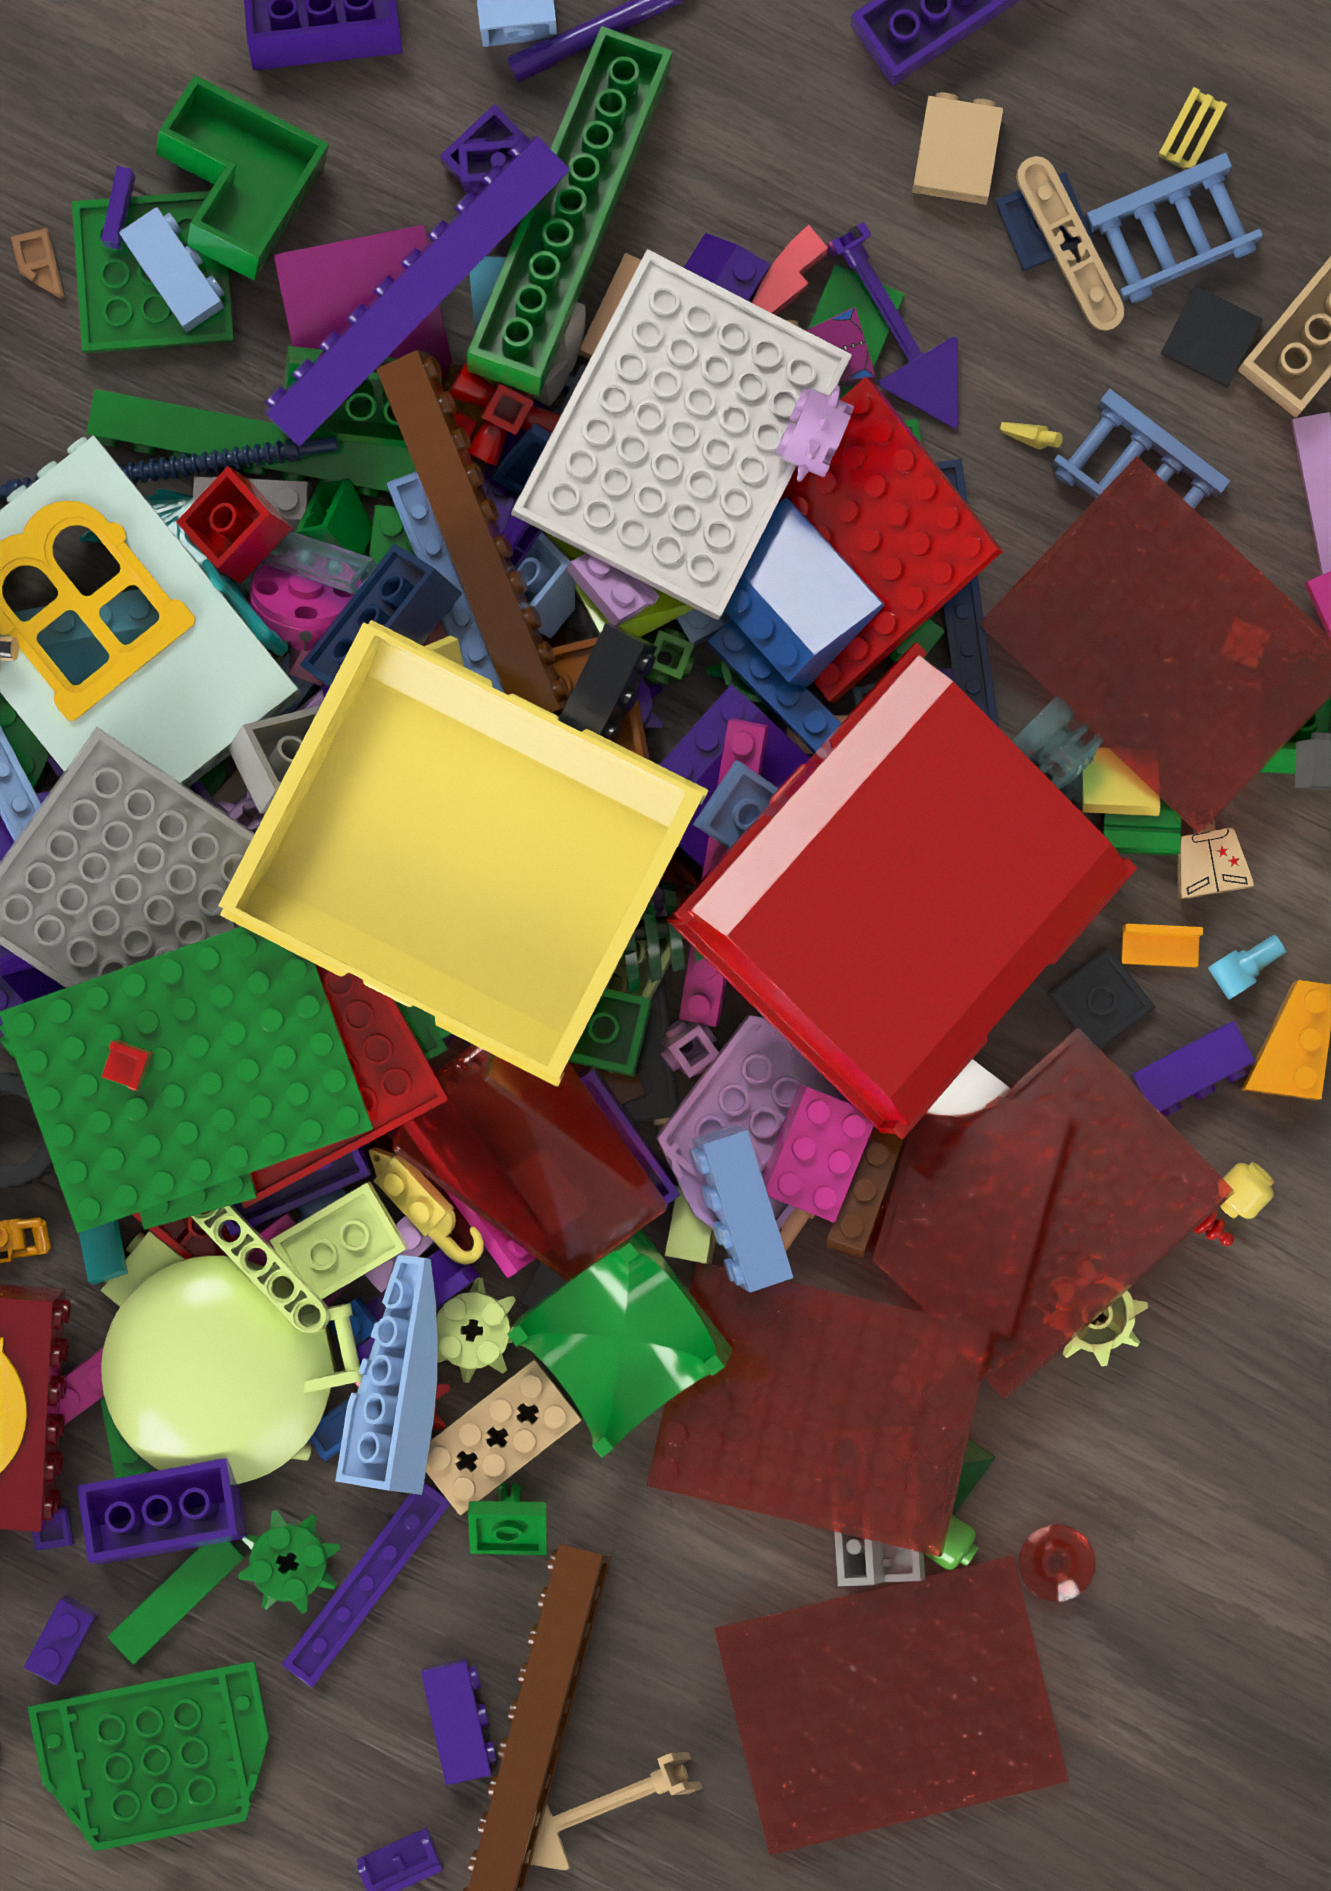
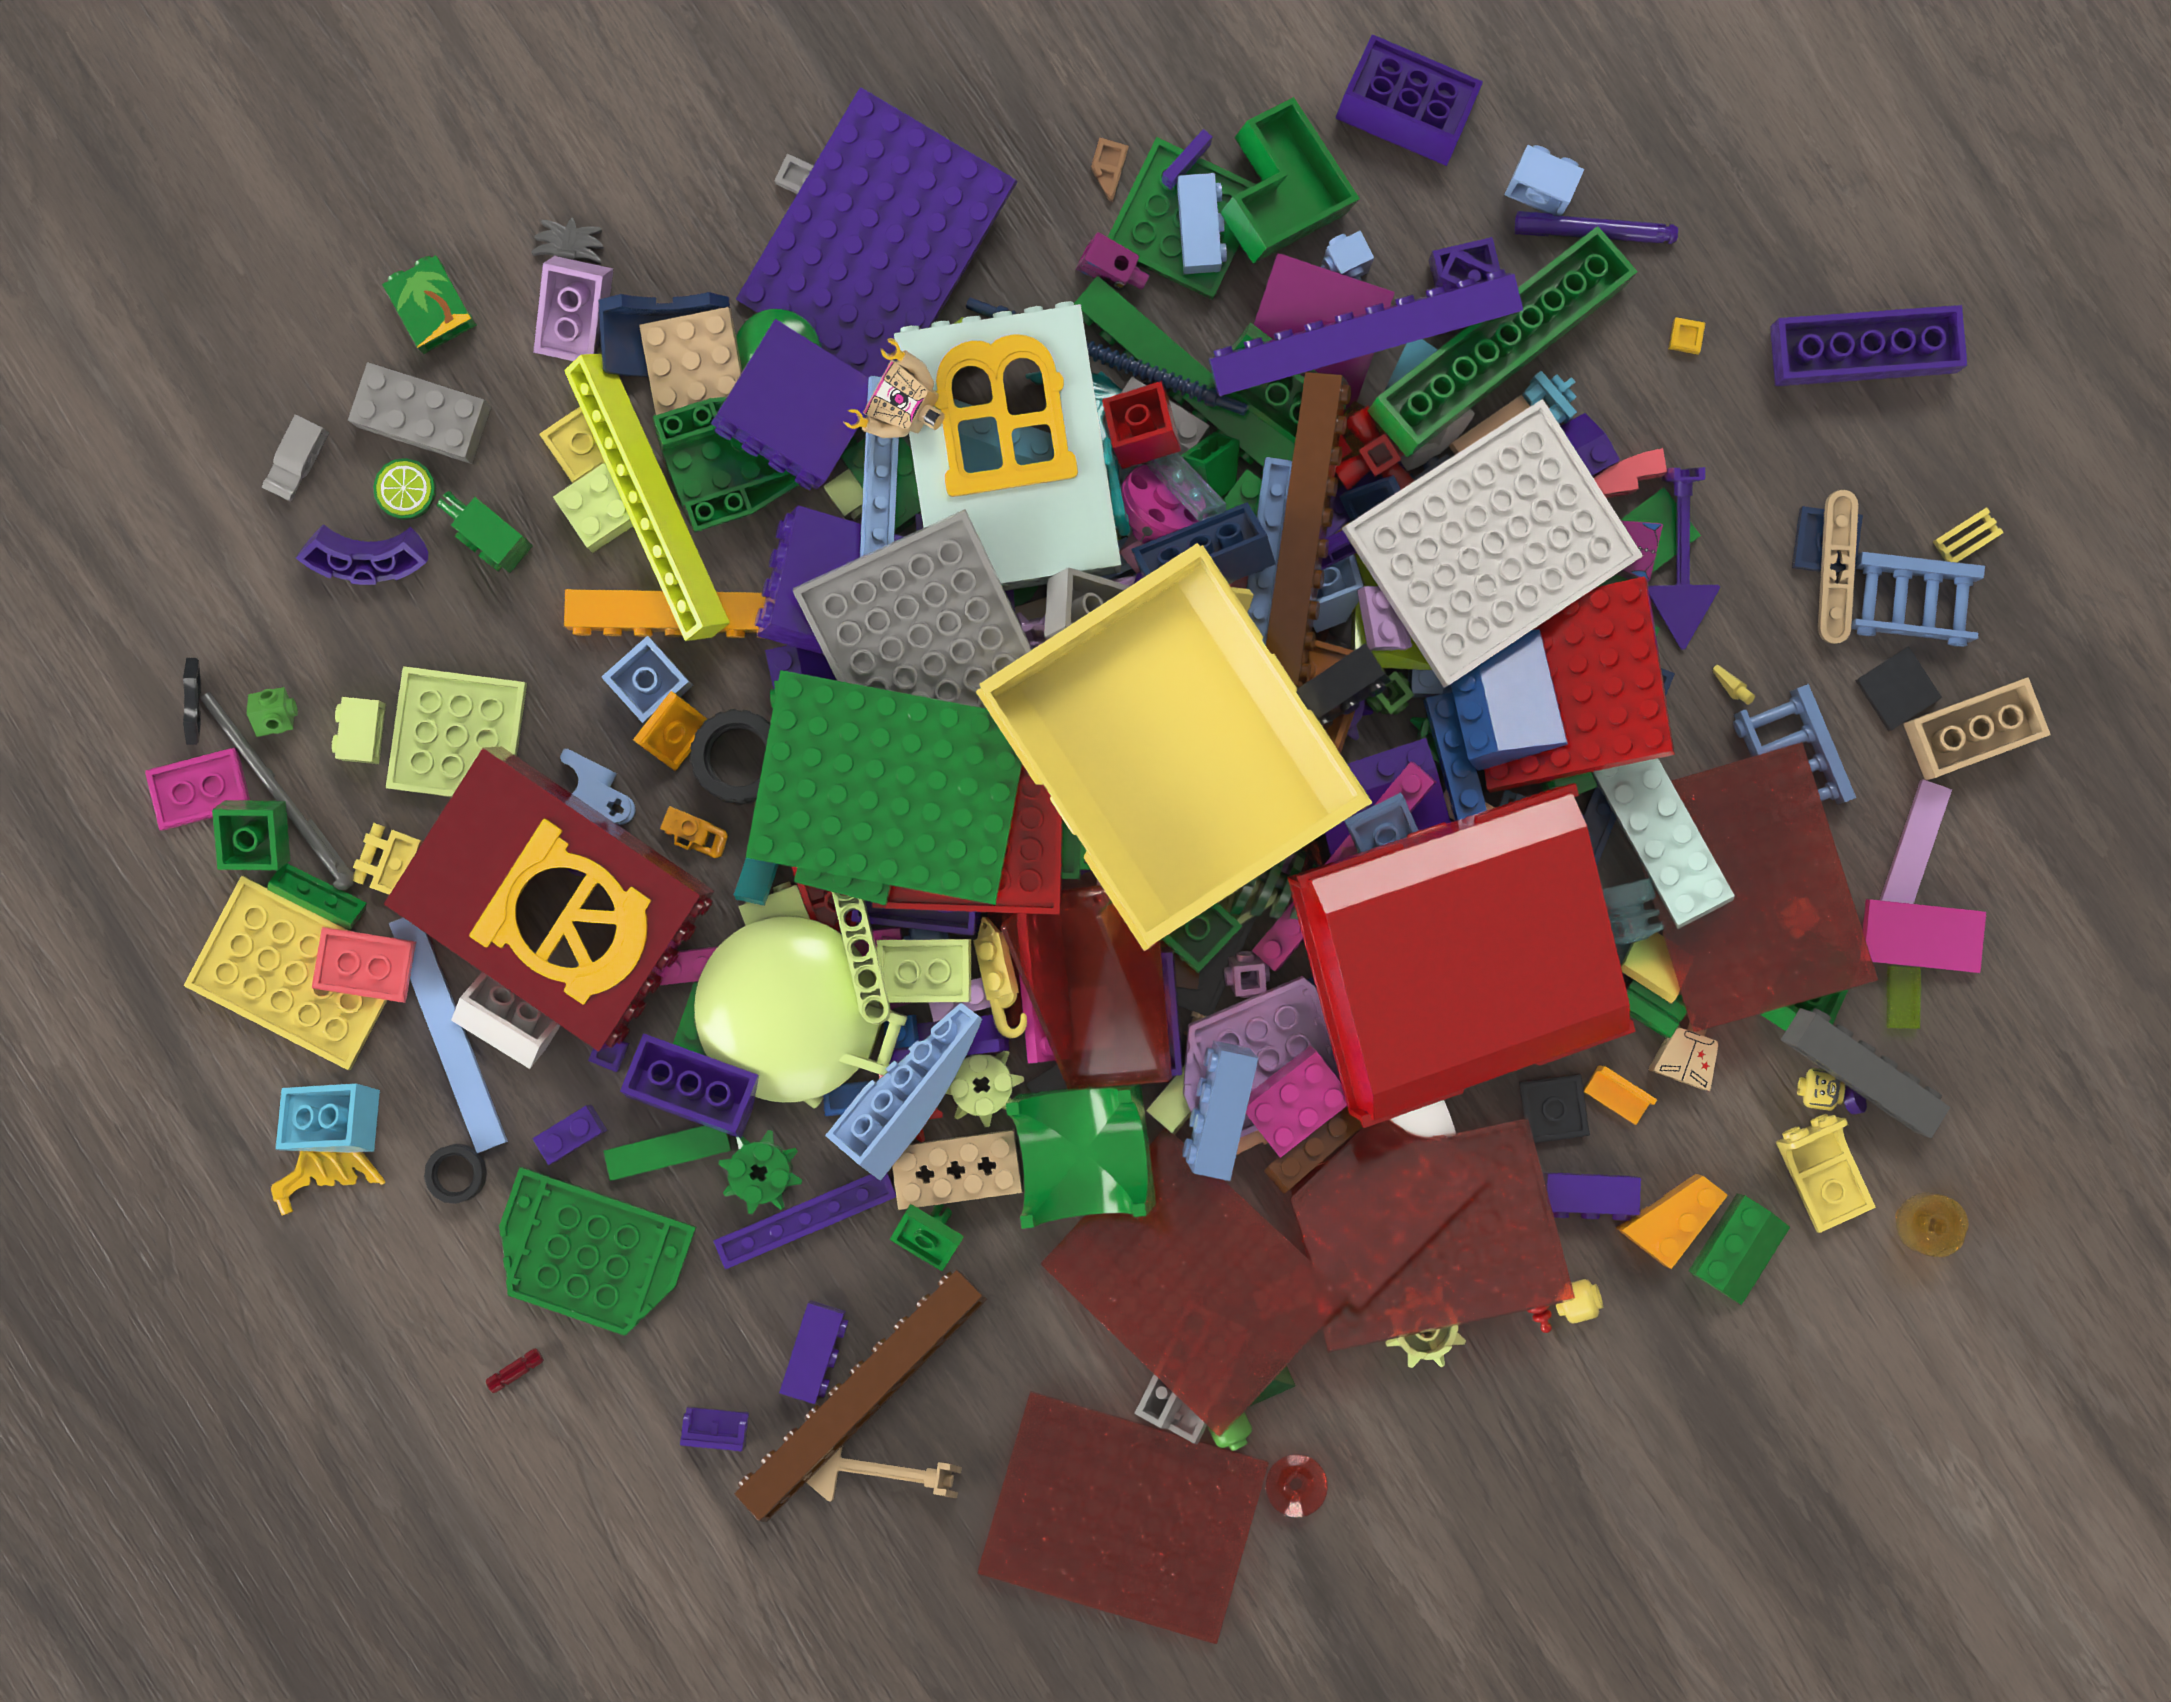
camera: 20 degrees right, 0 degrees up
(87, 371) = (1100, 260): none -> magenta torso
(127, 1064) = (849, 759): red panel -> none
(352, 213) = (1348, 255): none -> light blue brick
(642, 234) = (1542, 388): none -> medium azure hips
(766, 86) = (1686, 335): none -> yellow tile
(817, 431) = (1589, 593): lavender brick -> none
(957, 148) = (1796, 455): tan panel -> none
(1050, 645) = (1665, 839): none -> light aqua brick
(1239, 969) = (1663, 1143): medium azure pin -> none

